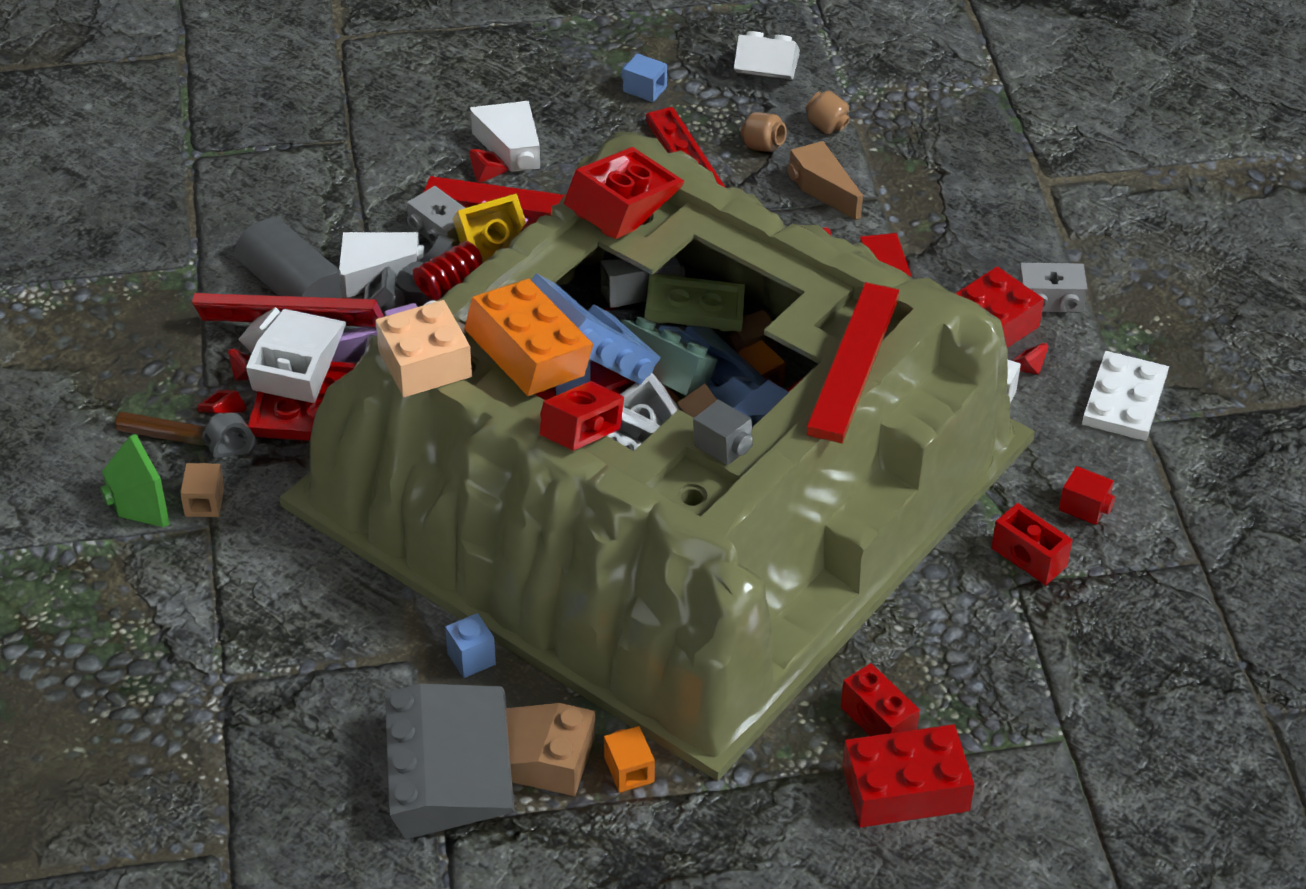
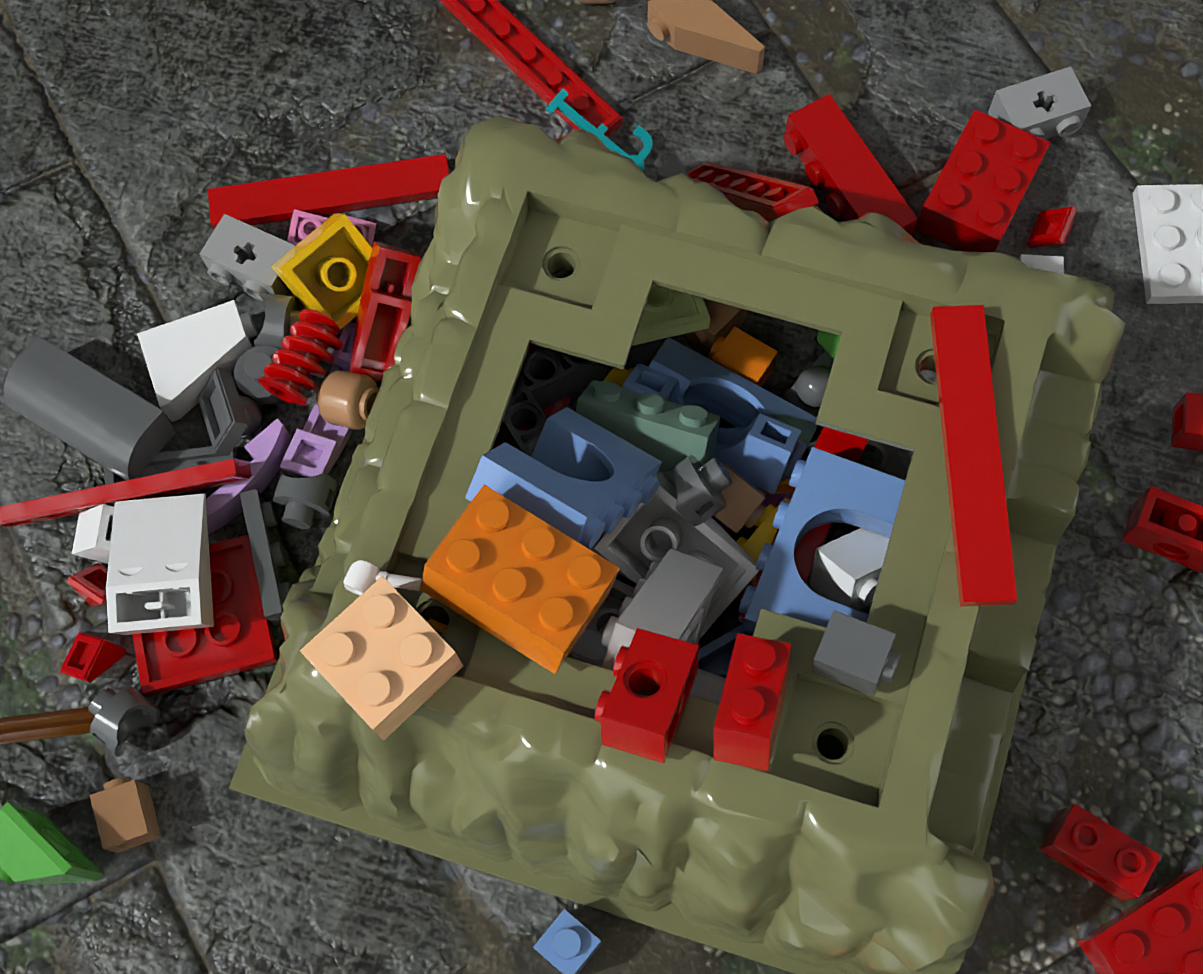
camera: 15 degrees left, 25 degrees up
(486, 164) = (270, 143): red slope -> none
(509, 133) = (280, 87): white slope -> none
(620, 191) = (537, 255): red slope -> none
(644, 432) = (752, 702): none -> red brick
(680, 384) = (699, 486): none -> dark grey piece

